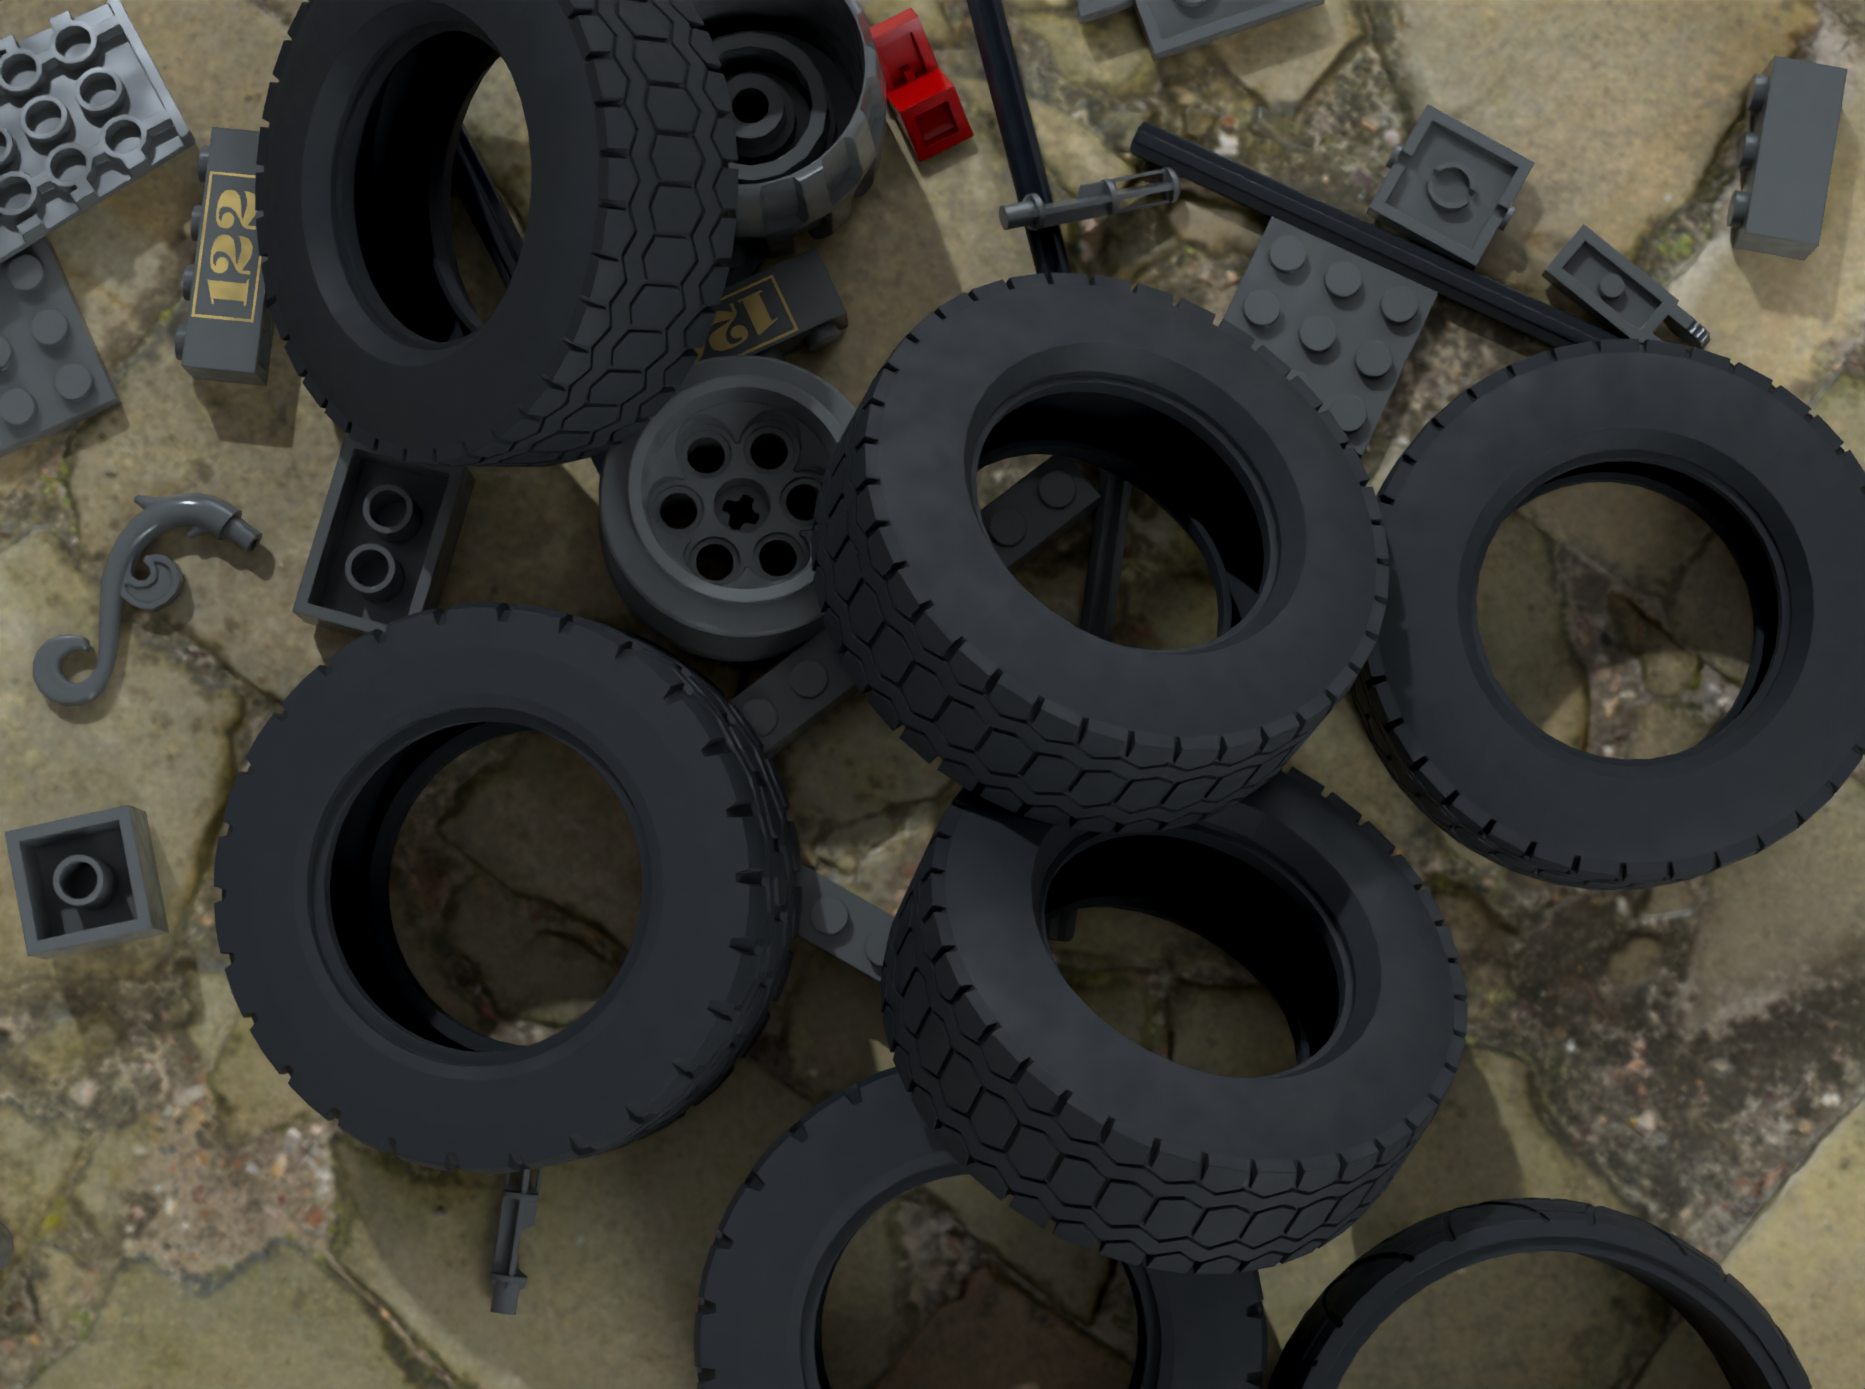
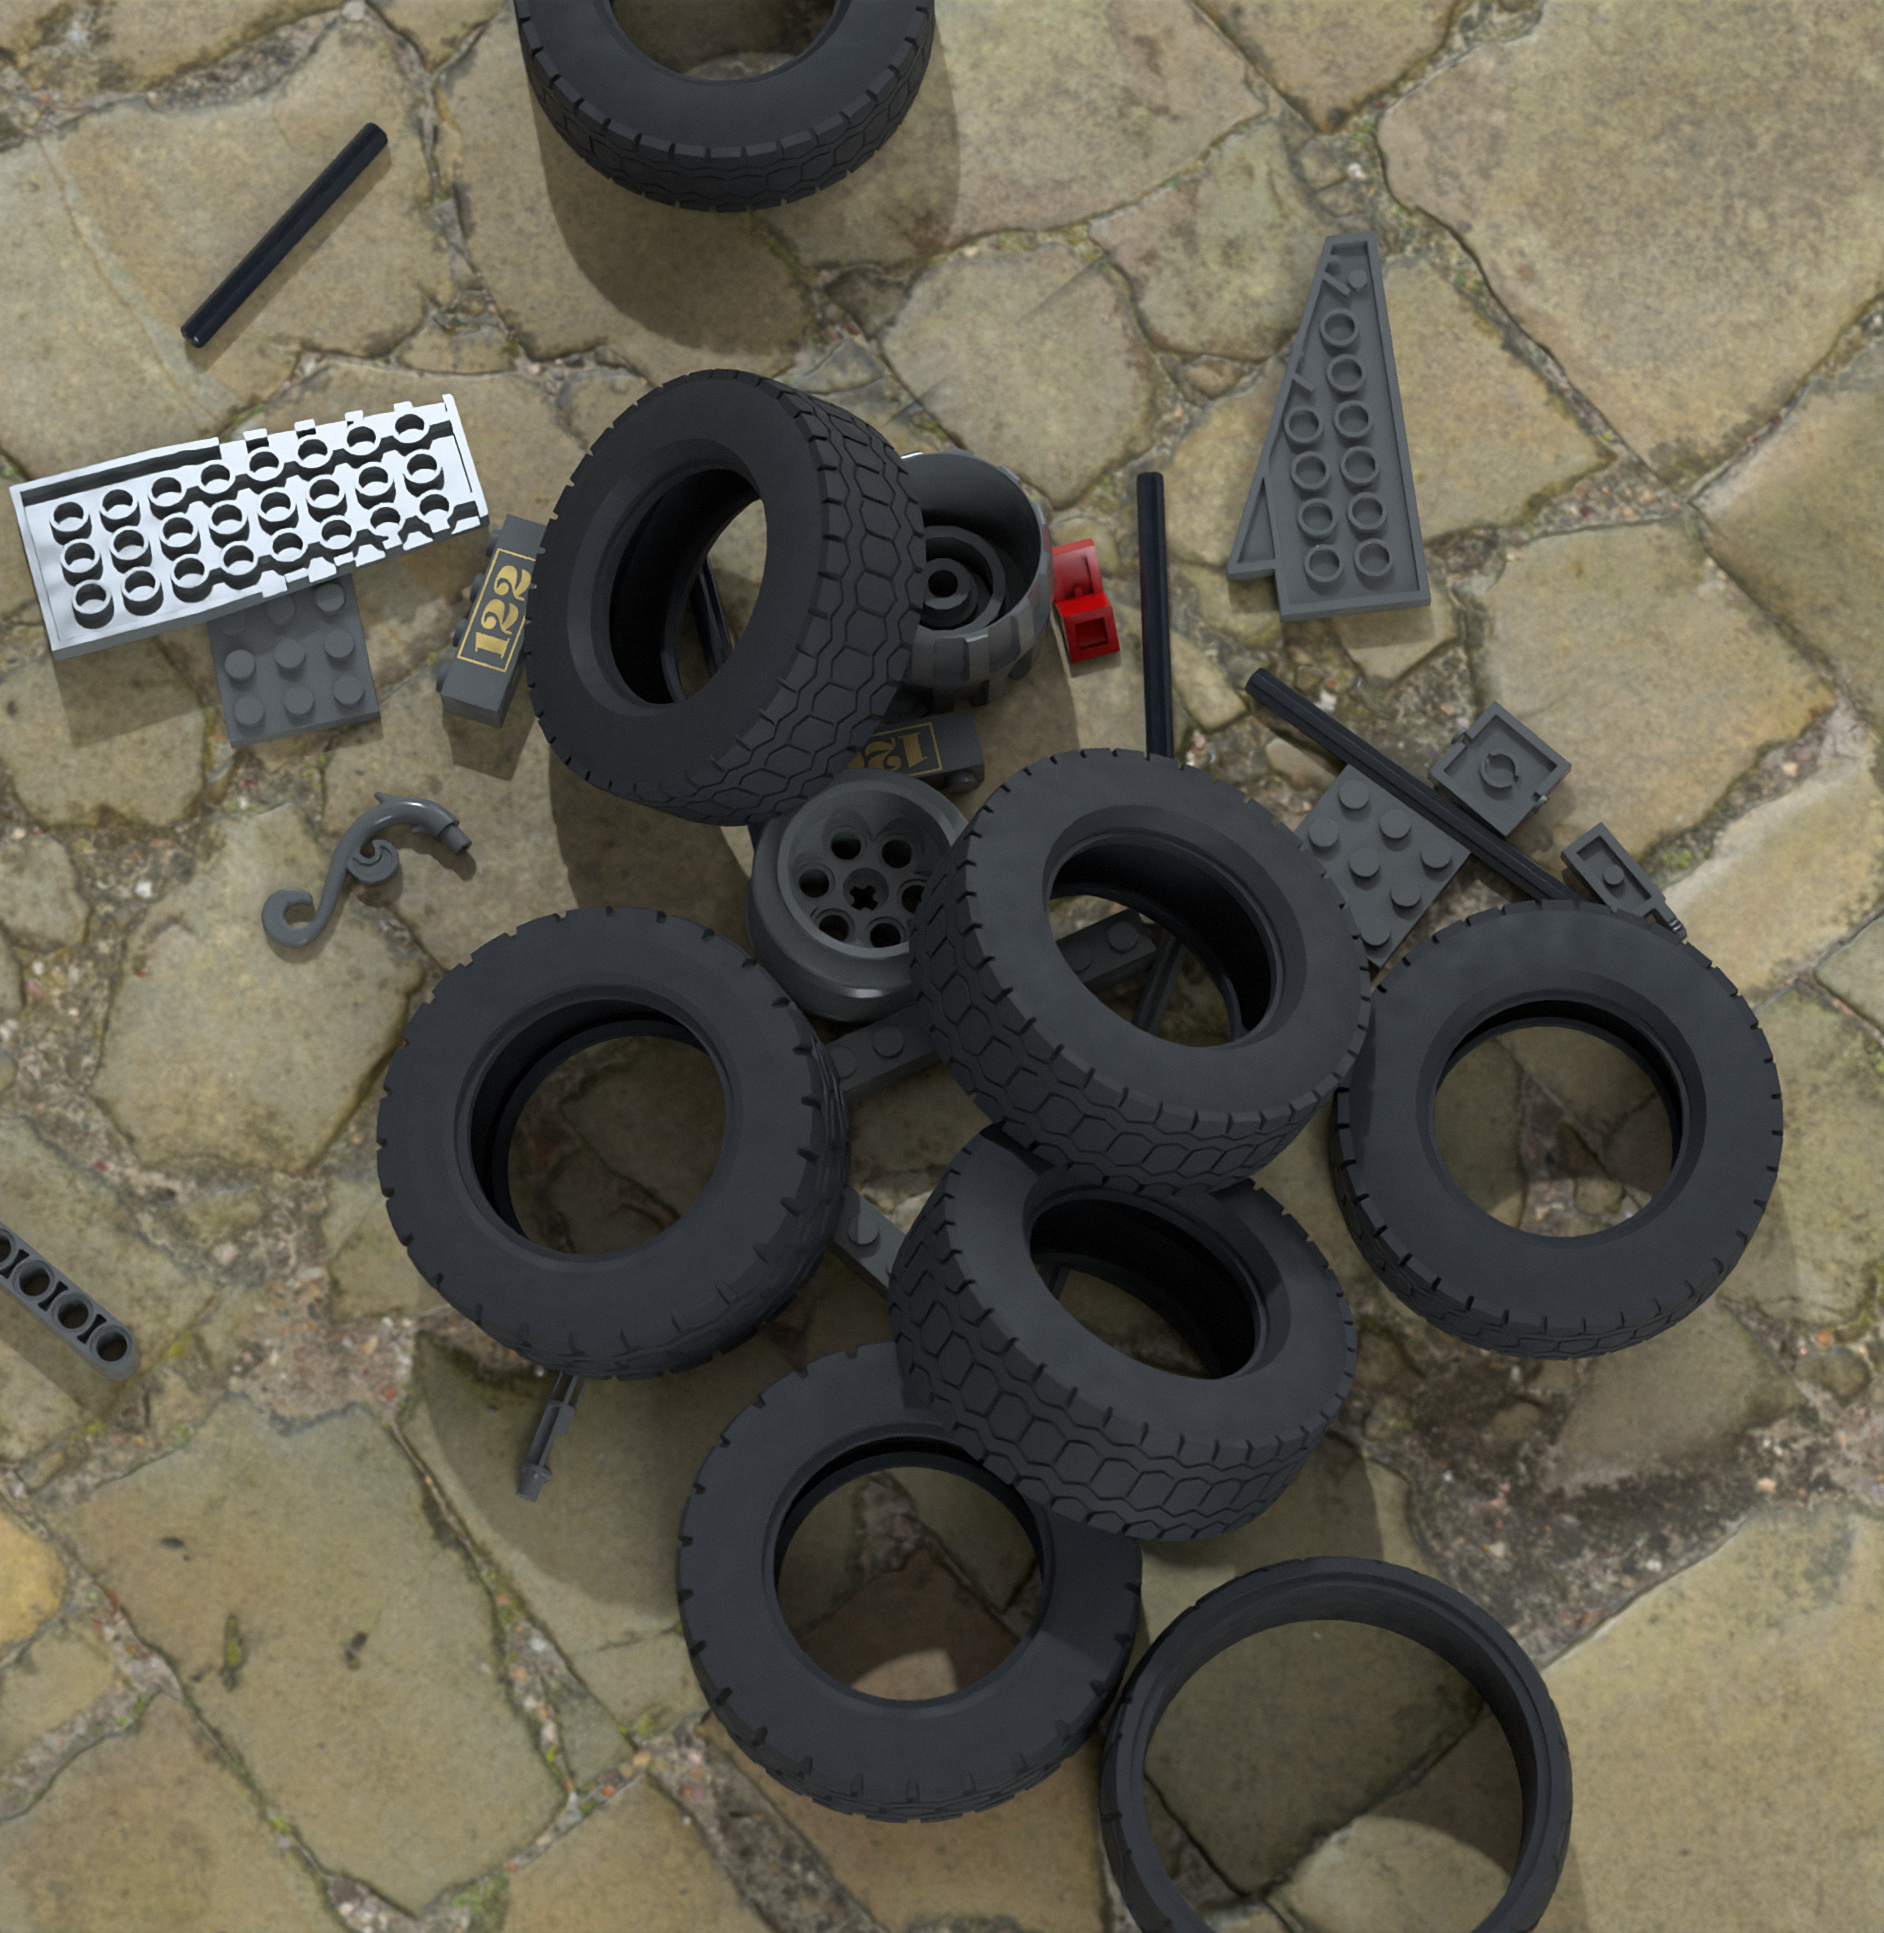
camera: 10 degrees right, 10 degrees down
(86, 882) = (270, 1082): dark grey brick -> none
(381, 541) = (571, 856): dark grey brick -> none
(1092, 201) = (1203, 720): dark grey piece -> none
(1787, 157) = (1779, 804): dark grey brick -> none

